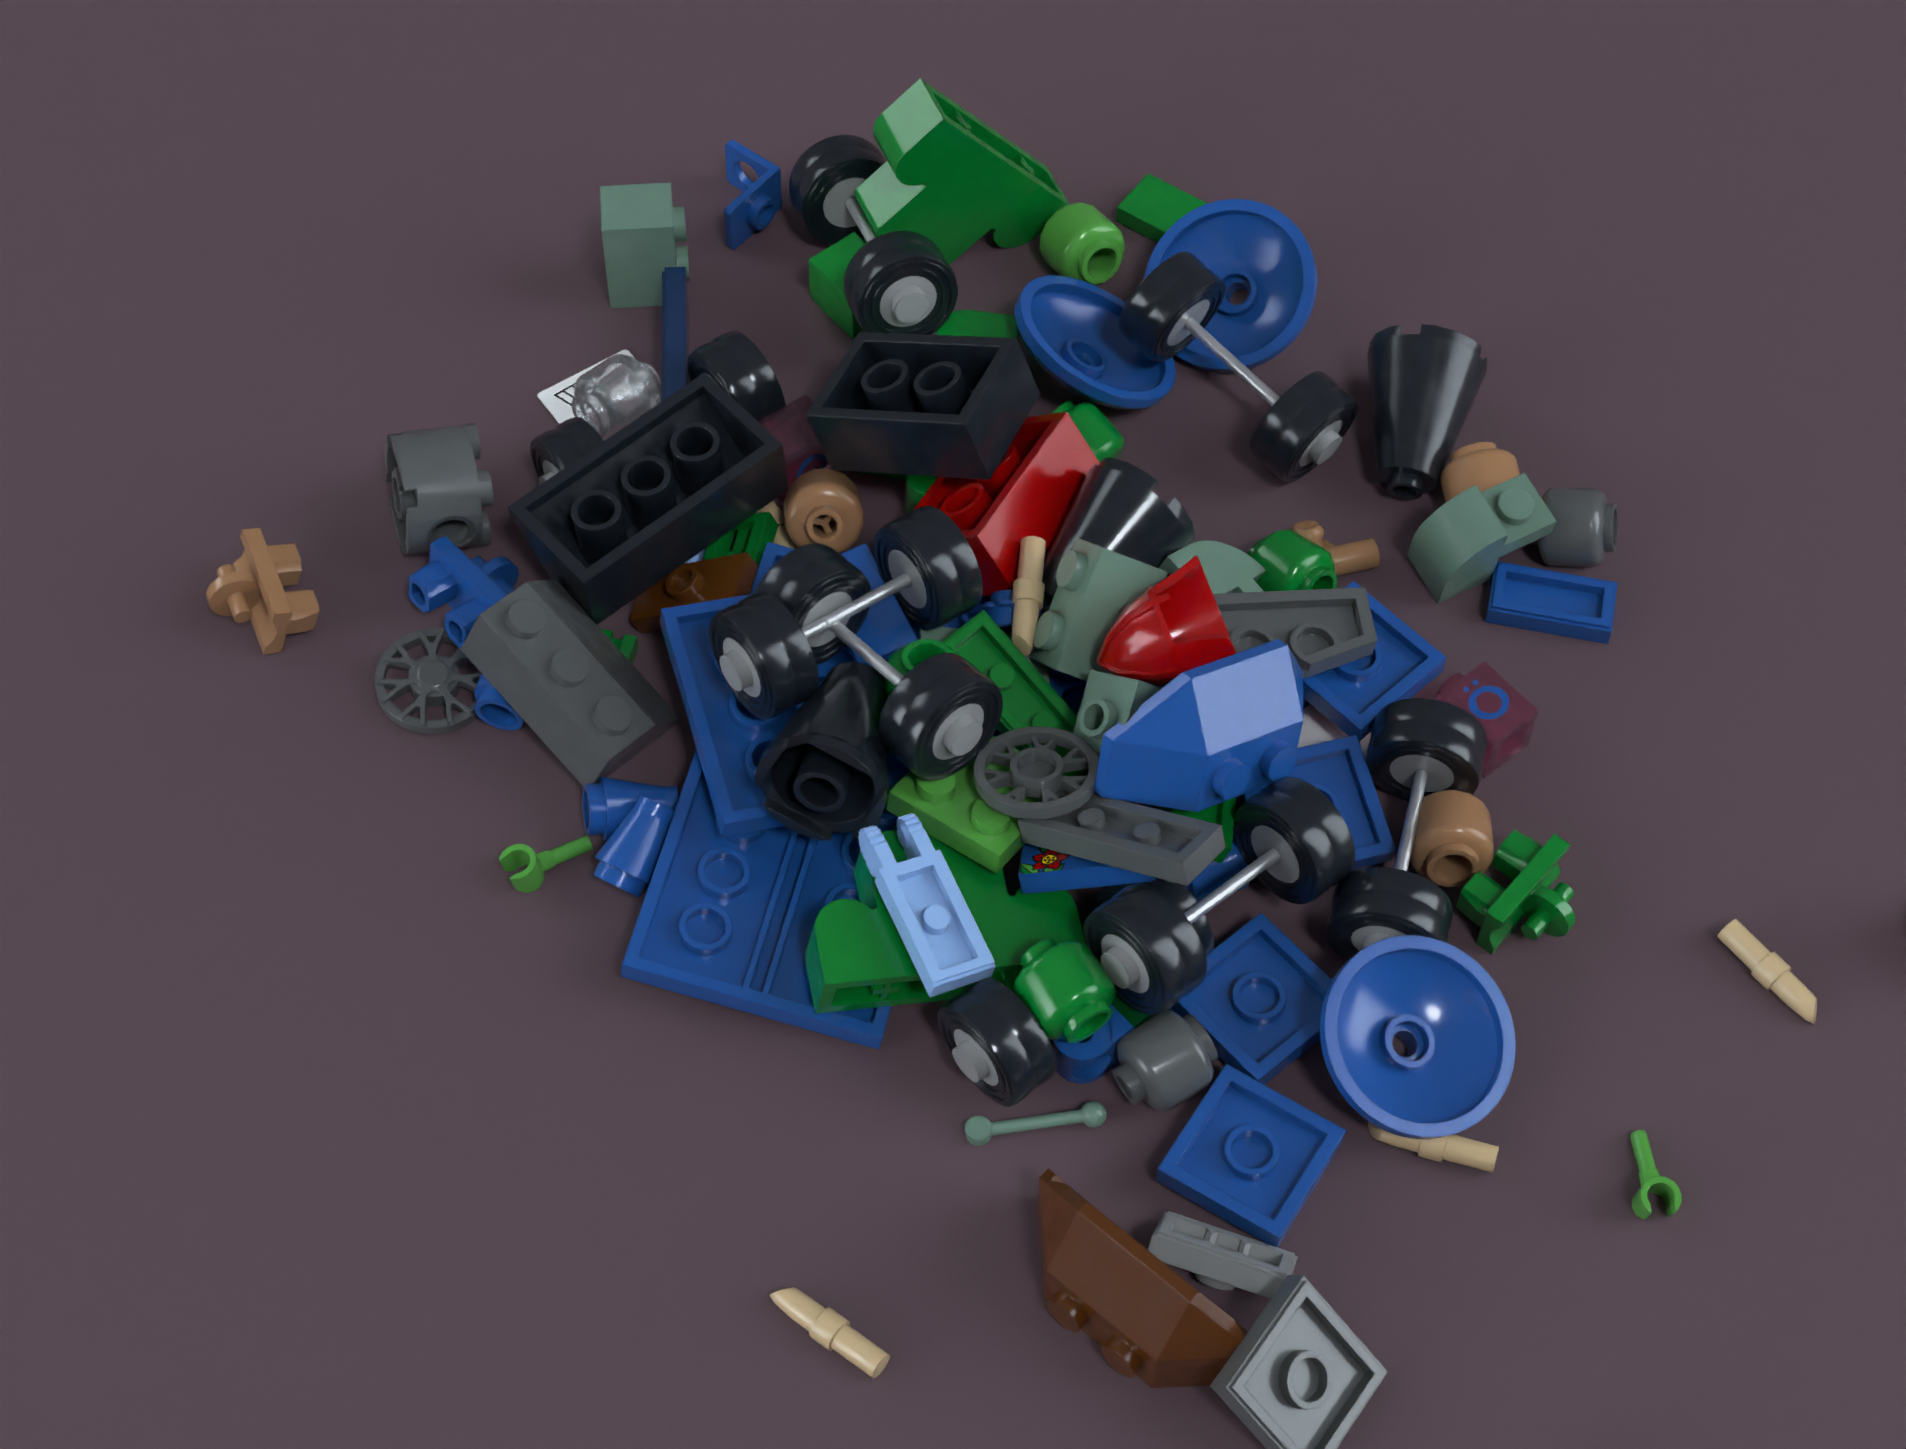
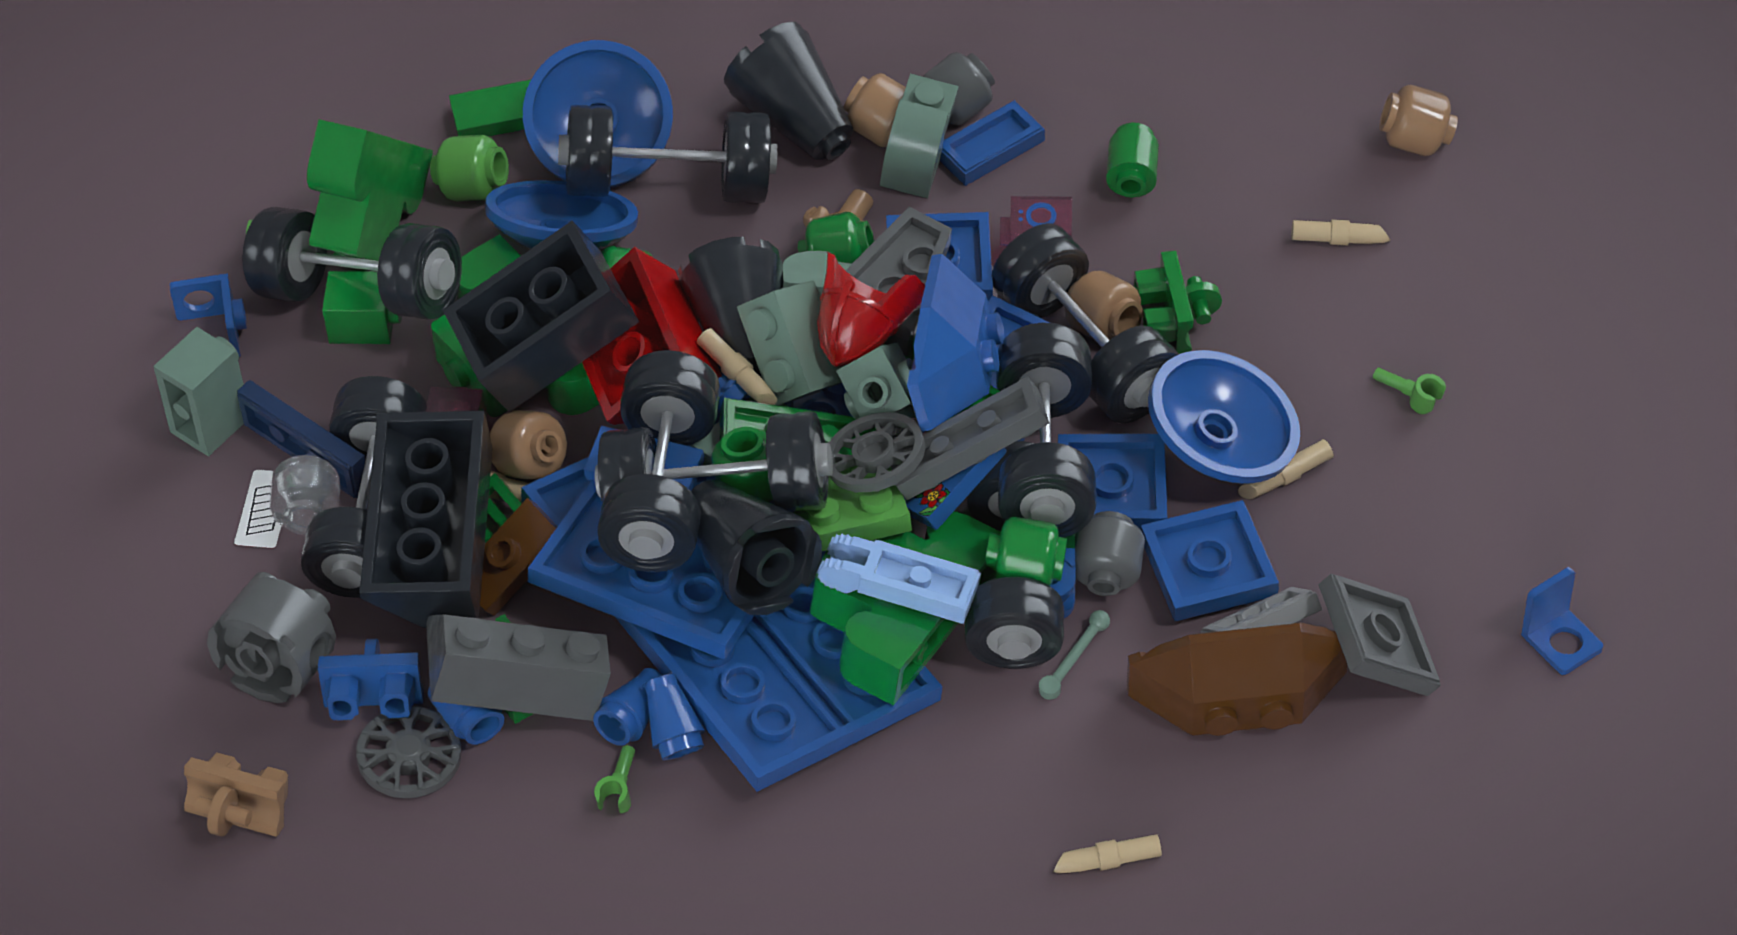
camera: 45 degrees left, 5 degrees down
(1652, 729) = (1132, 160): none -> green brick

